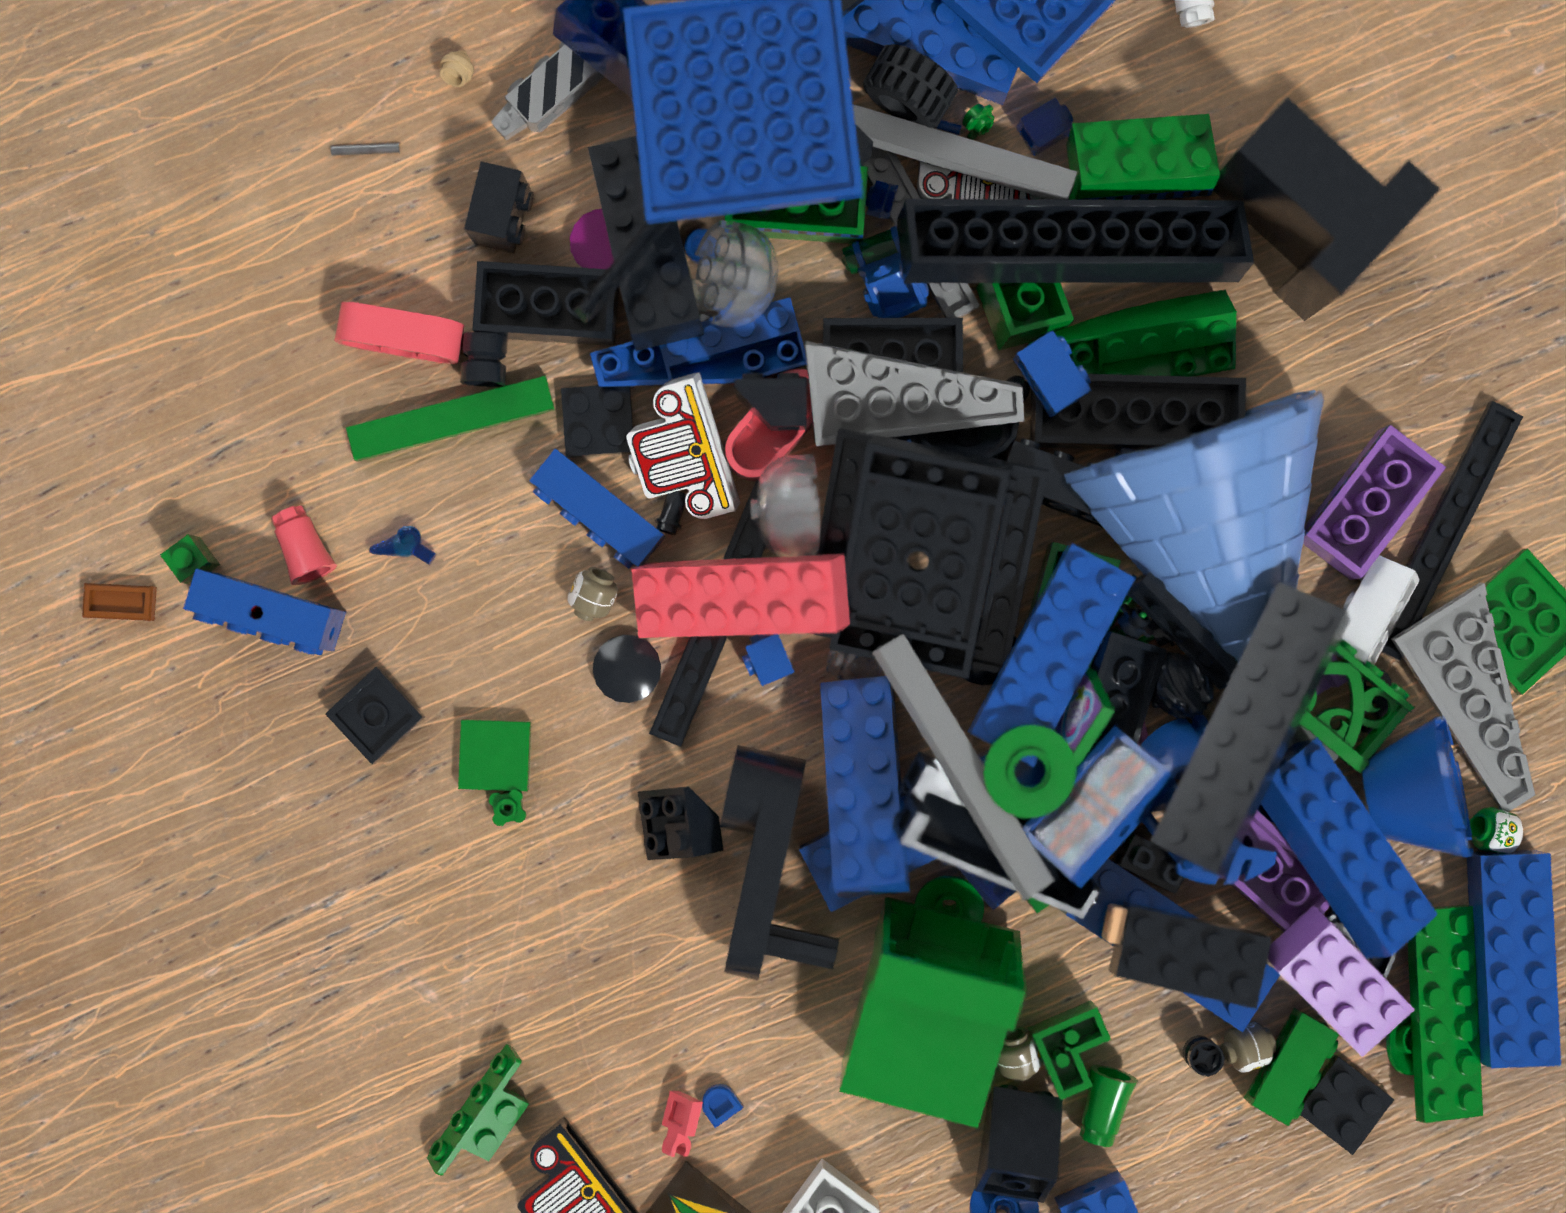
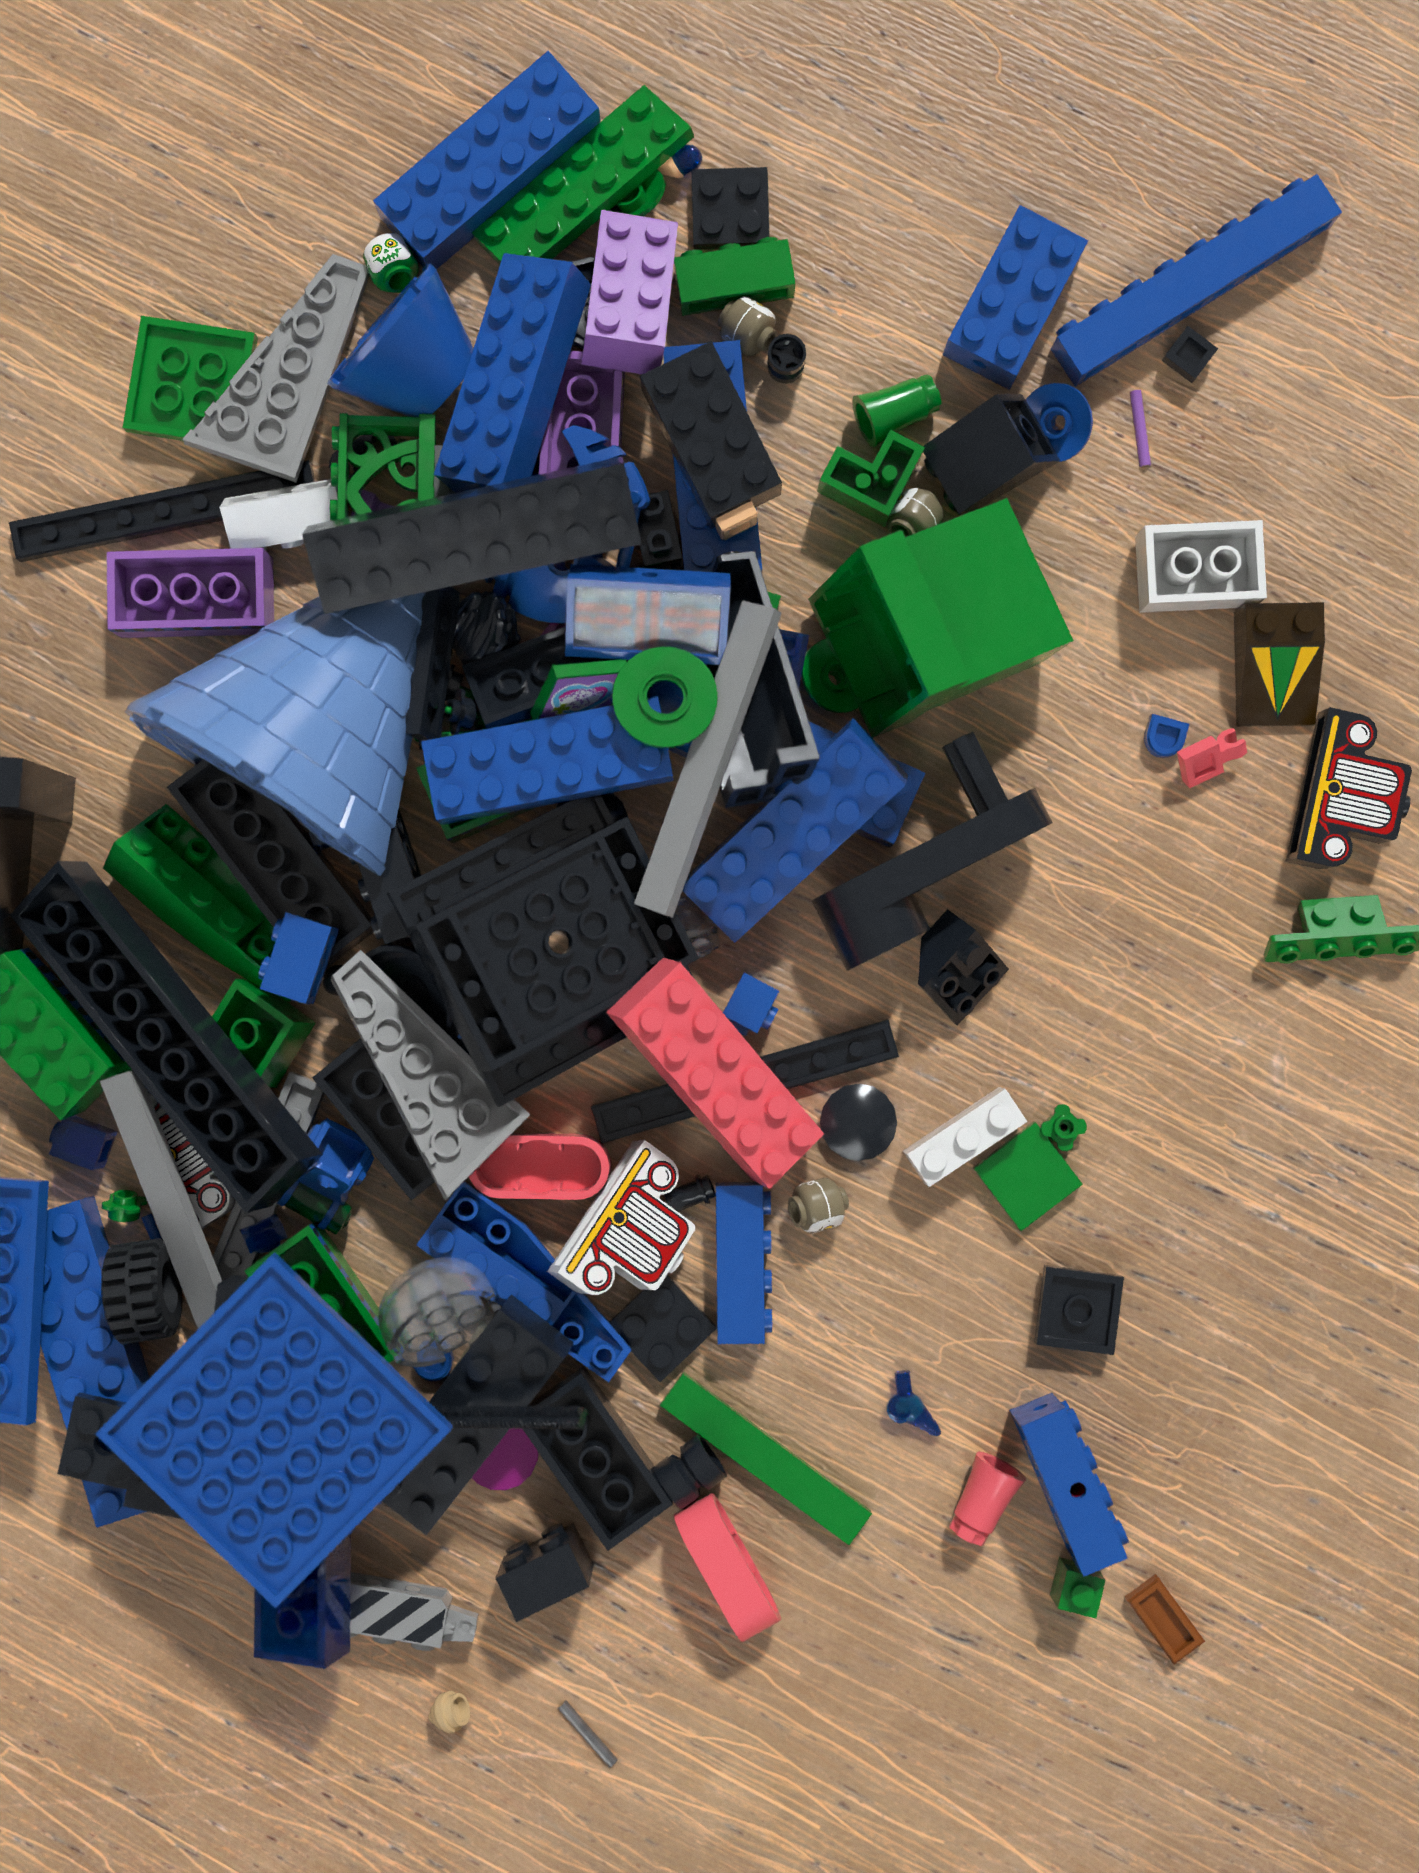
camera: 125 degrees left, 0 degrees up
(557, 734) = (964, 1136): none -> white brick
(776, 402) = (520, 1182): black slope -> none
(788, 506) = (603, 1095): clear cylinder -> none
(1404, 1097) = (682, 162): none -> clear blue arm

